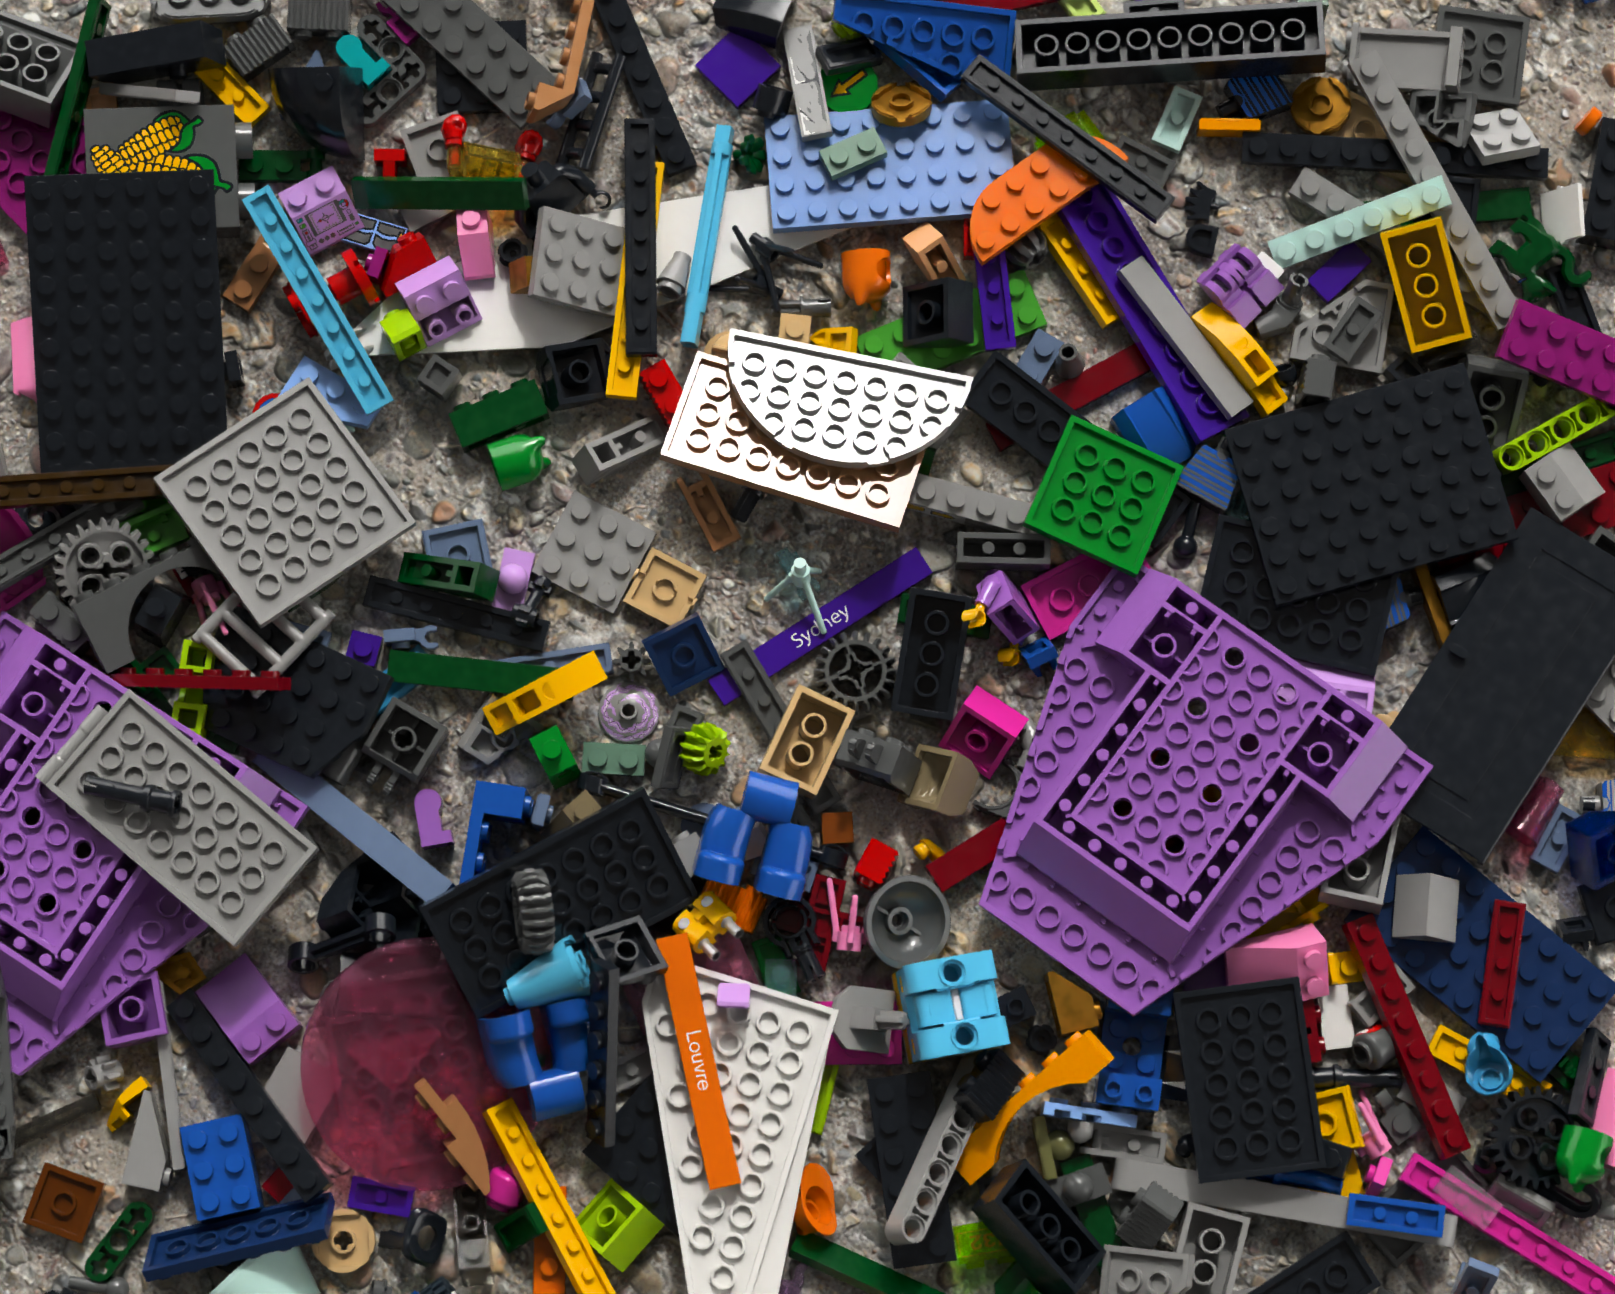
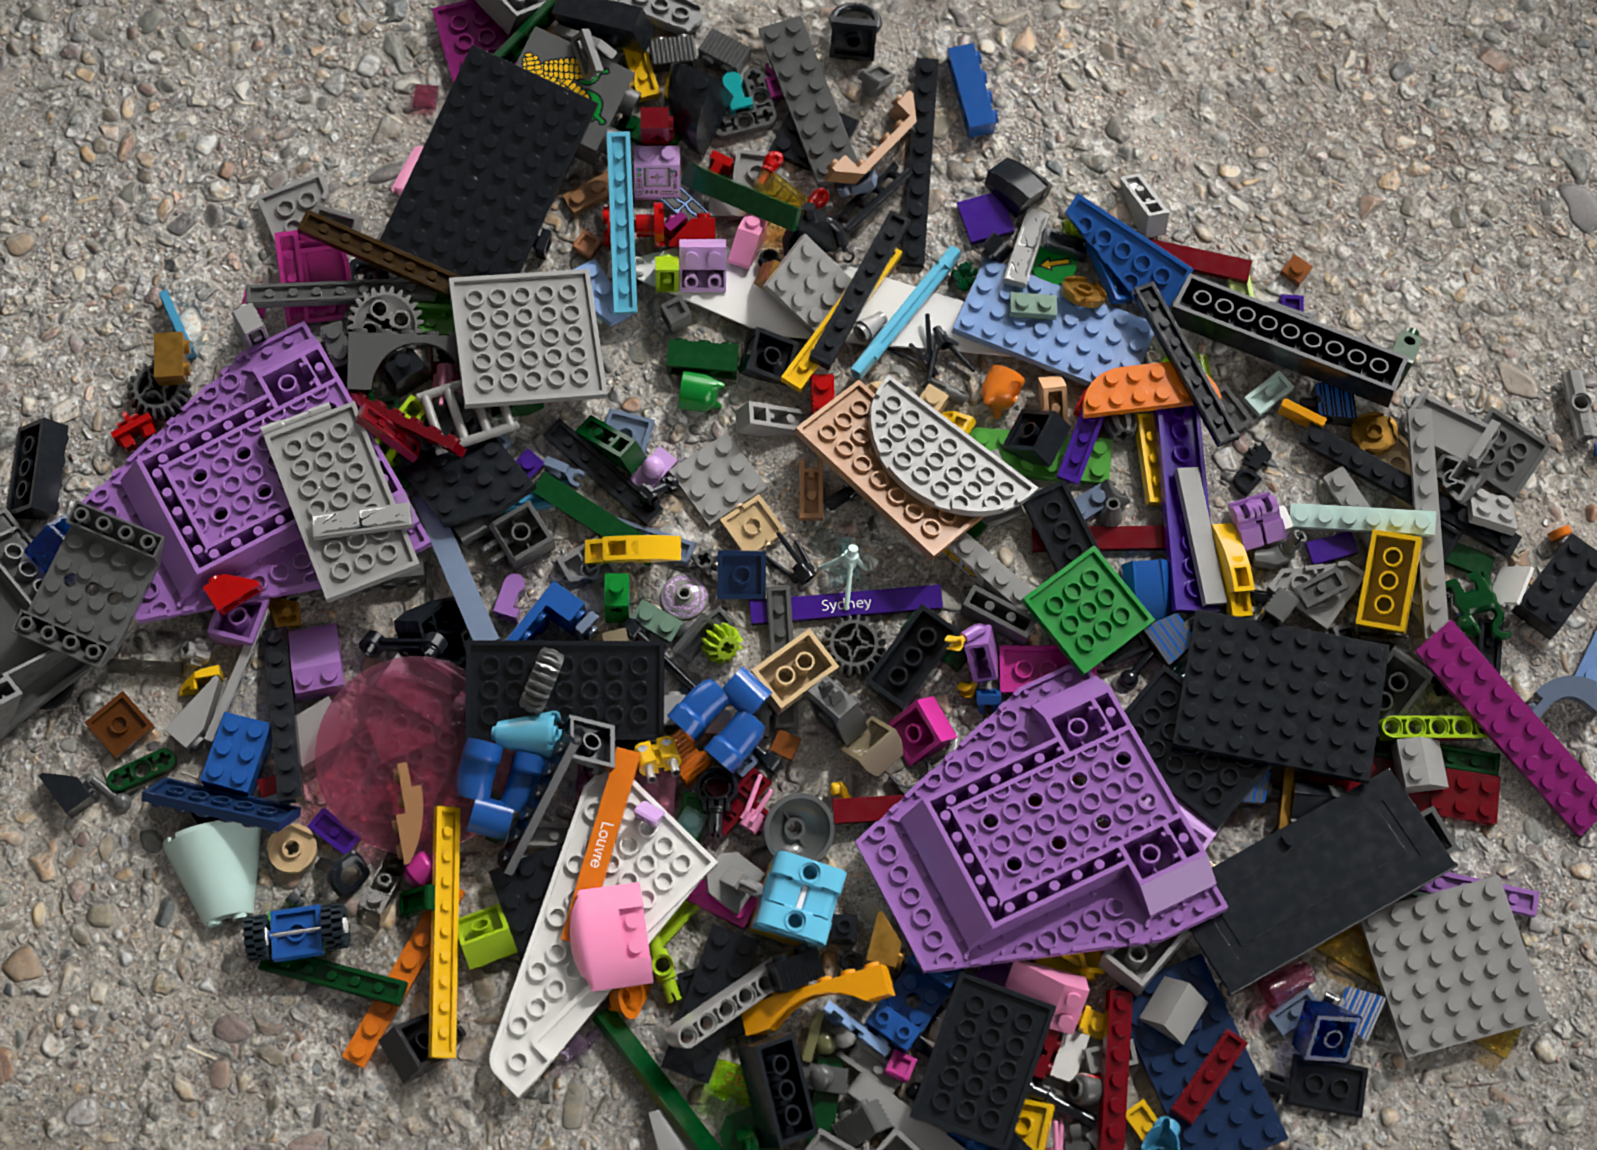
camera: 25 degrees right, 10 degrees down
(108, 988) = (230, 591): none -> red slope
(147, 798) = (324, 474): black pin -> none
(166, 115) = (586, 54): none -> dark grey tile
(188, 703) = (388, 432): none -> dark red tile
(222, 831) = (362, 521): none -> light grey tile
(285, 341) = (587, 244): none -> nougat tile
(294, 158) = (656, 126): none -> dark red brick
(750, 610) = (802, 570): none -> black plant
(765, 1158) = (611, 937): none -> bright pink slope
(846, 1166) = (666, 978): none -> lime pin
(875, 865) = (797, 778): red brick -> none
(1058, 334) = (1111, 491): none -> dark grey tile
(1157, 1129) = (900, 1066): none -> dark pink tile

